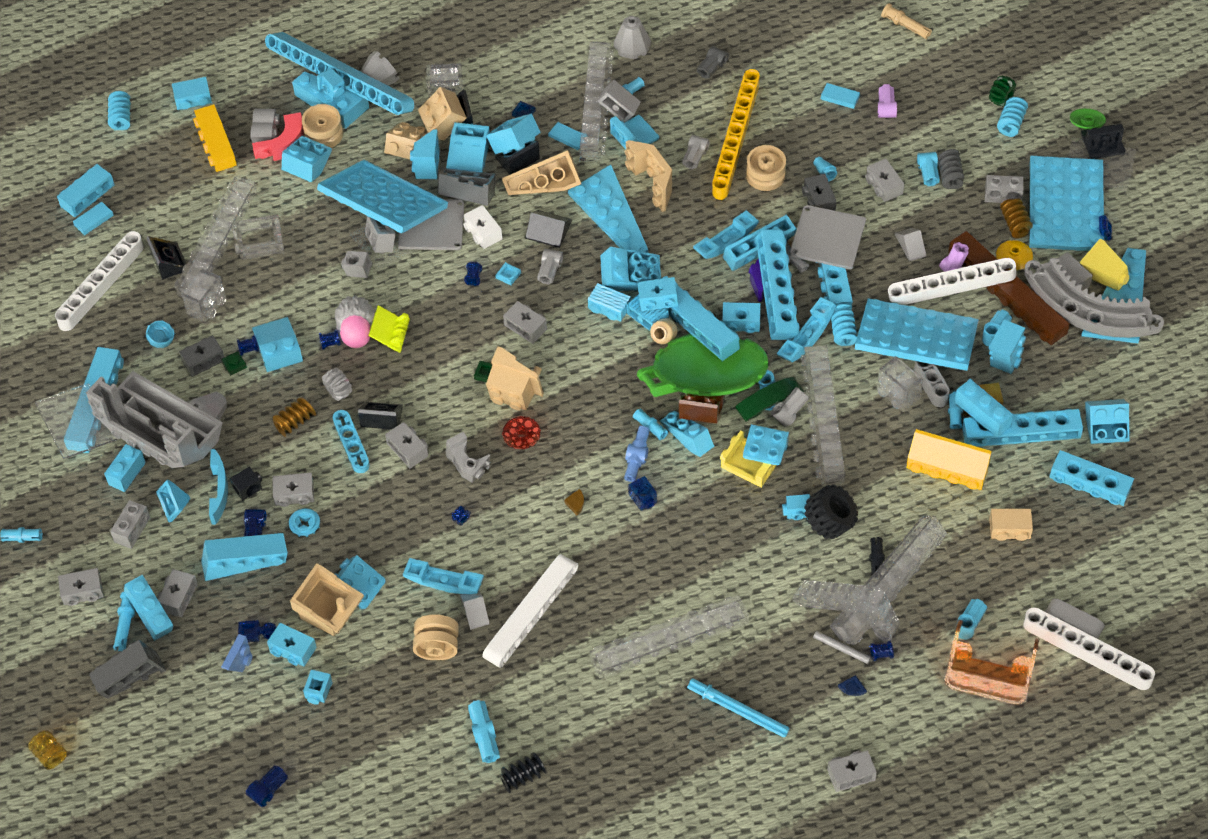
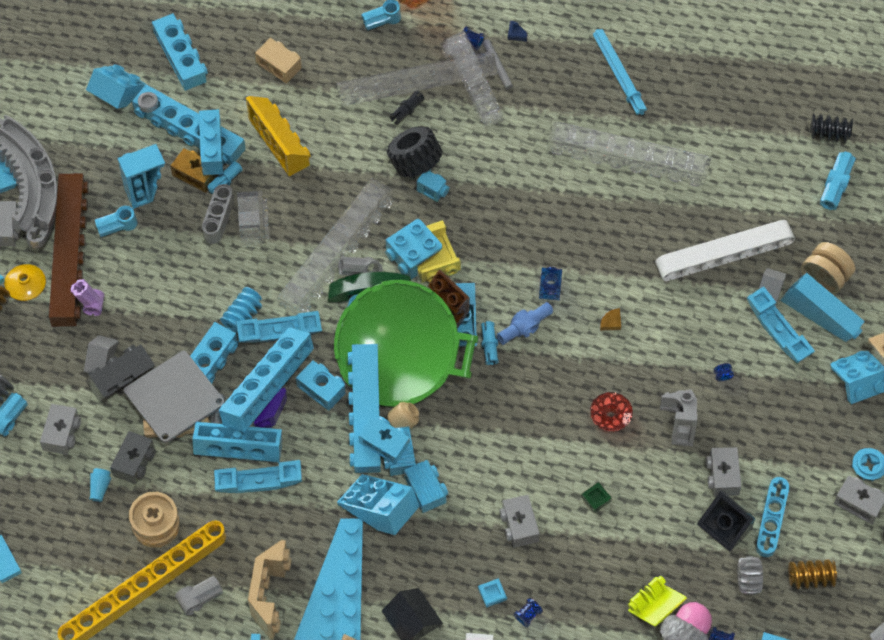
camera: 145 degrees left, 5 degrees up
(409, 607) = (823, 308): none -> medium azure slope
(512, 381) = (585, 454): tan piece -> none
(549, 264) = (443, 571): light grey piece -> none
(882, 228) = (119, 372): none -> dark grey wedge
(917, 334) = (189, 258): medium azure plate -> none
(959, 275) = (117, 284): white beam -> none
(1064, 412) = (148, 102): none -> light grey tile

